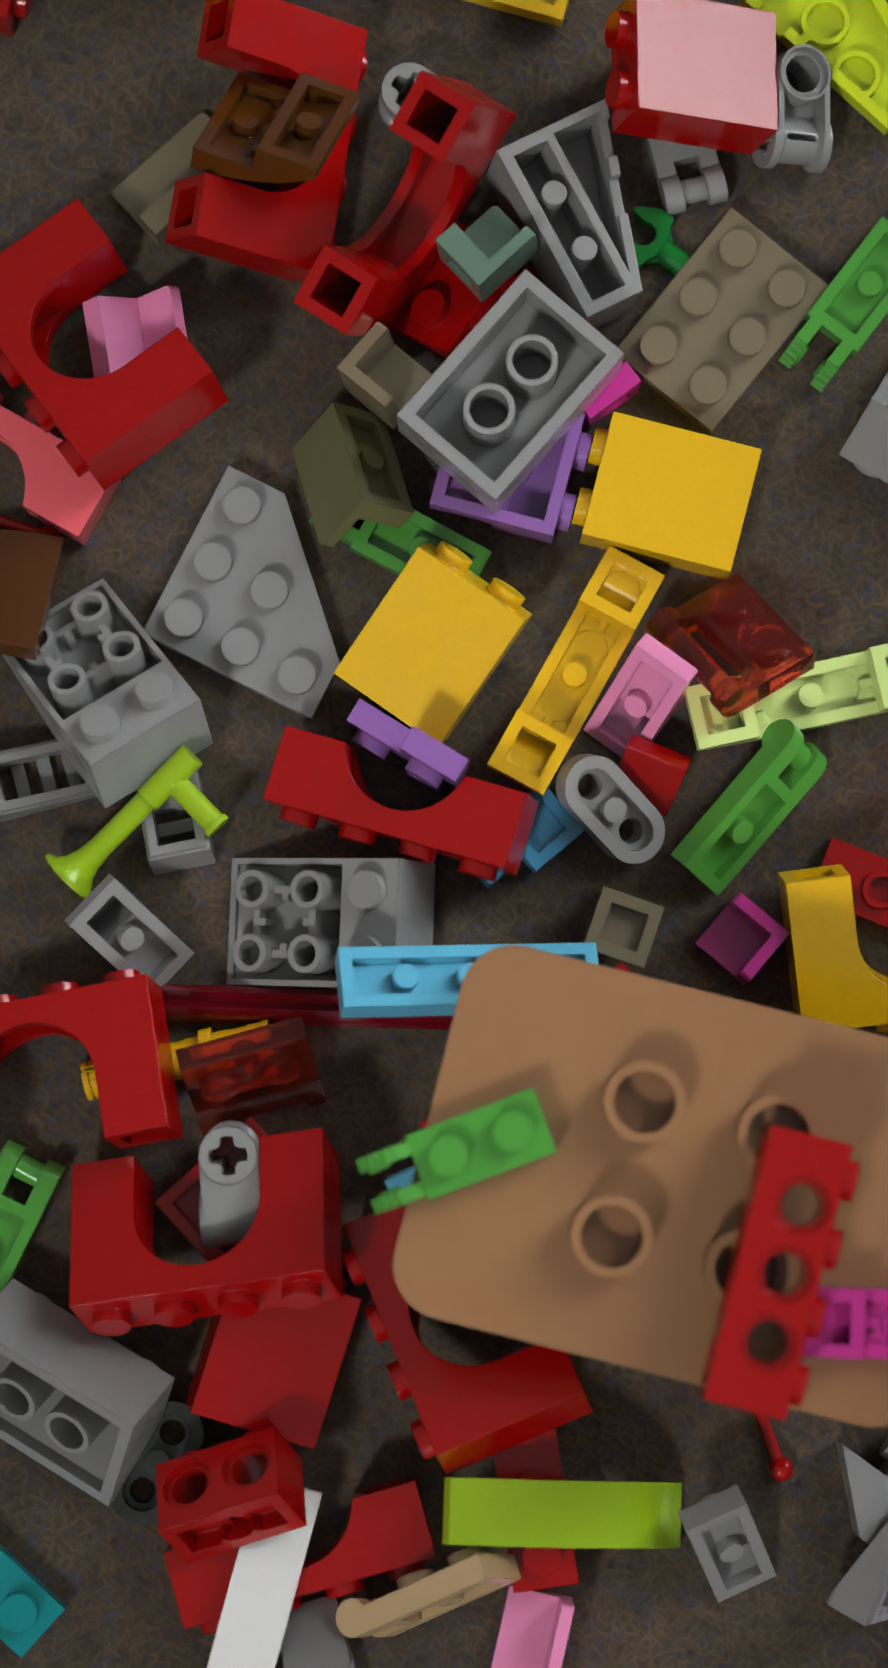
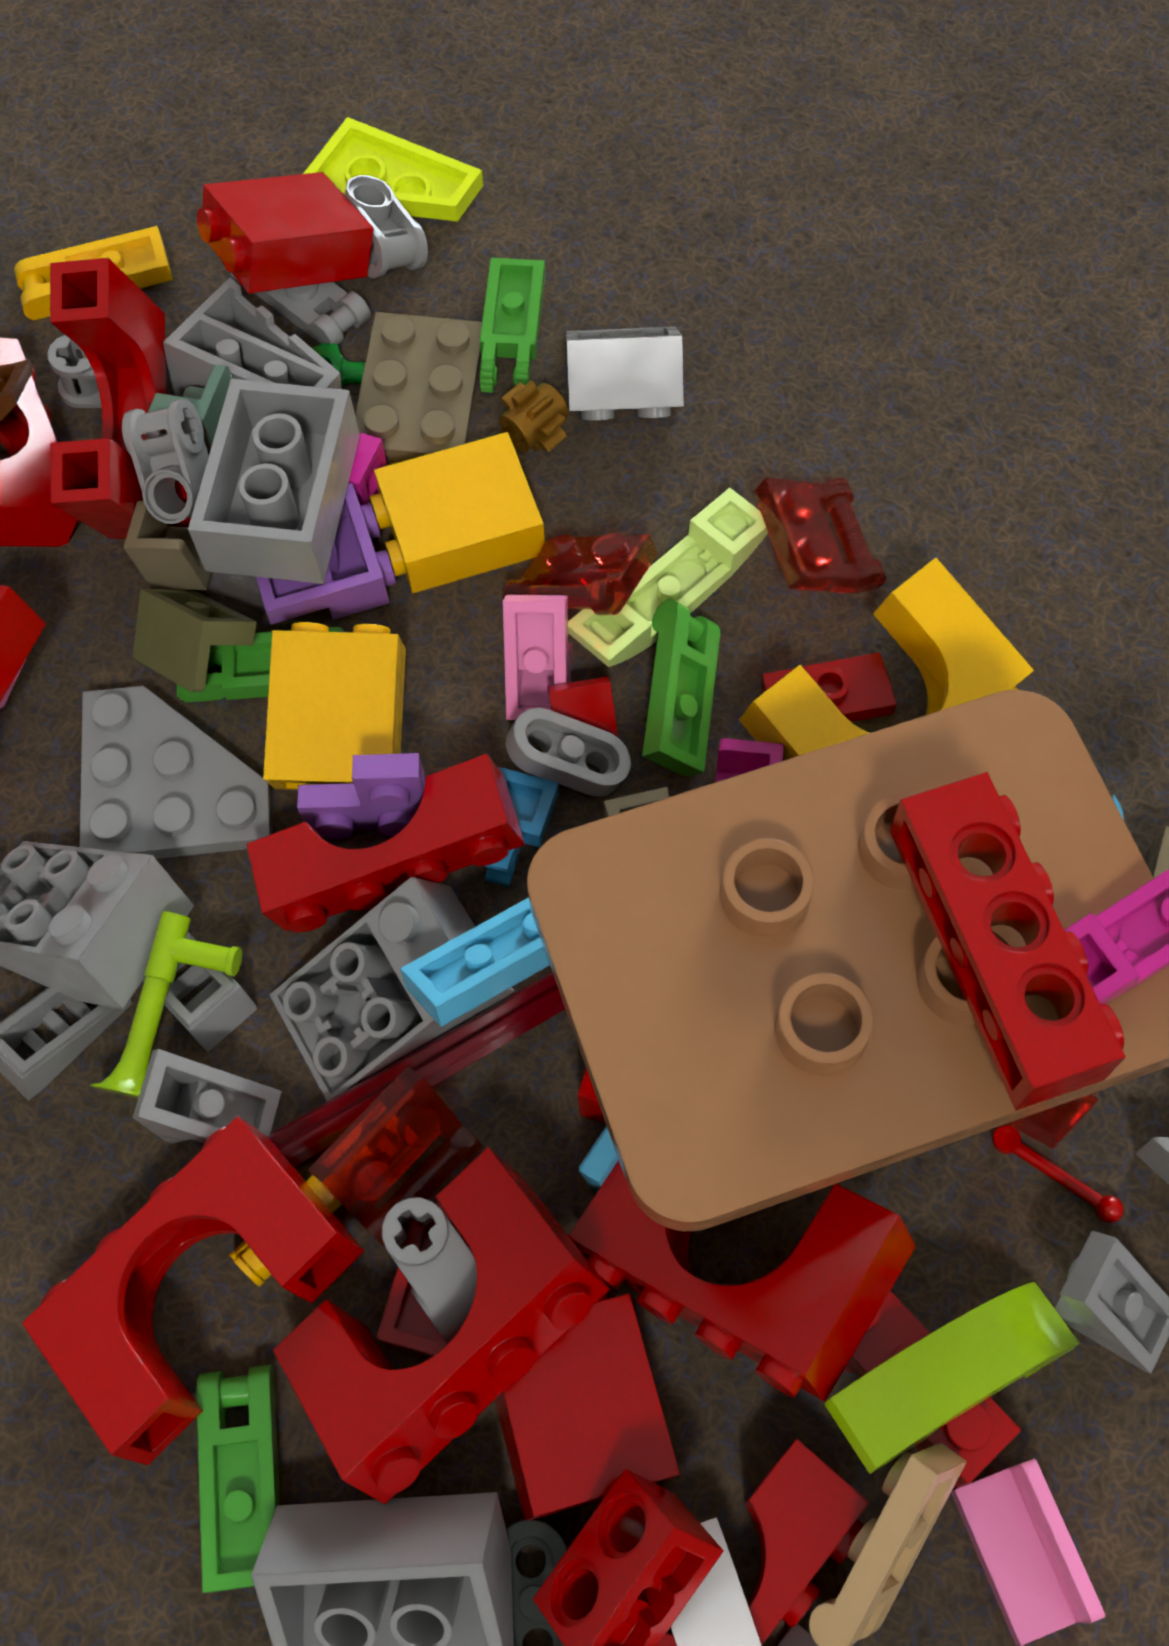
camera: 30 degrees left, 20 degrees down
(425, 308) = (167, 457): none -> light grey piece
(465, 1149) = (630, 1036): bright green hinge -> none
(576, 671) = (469, 665): yellow slope -> none
(802, 436) = (534, 417): none -> pearl gold gear

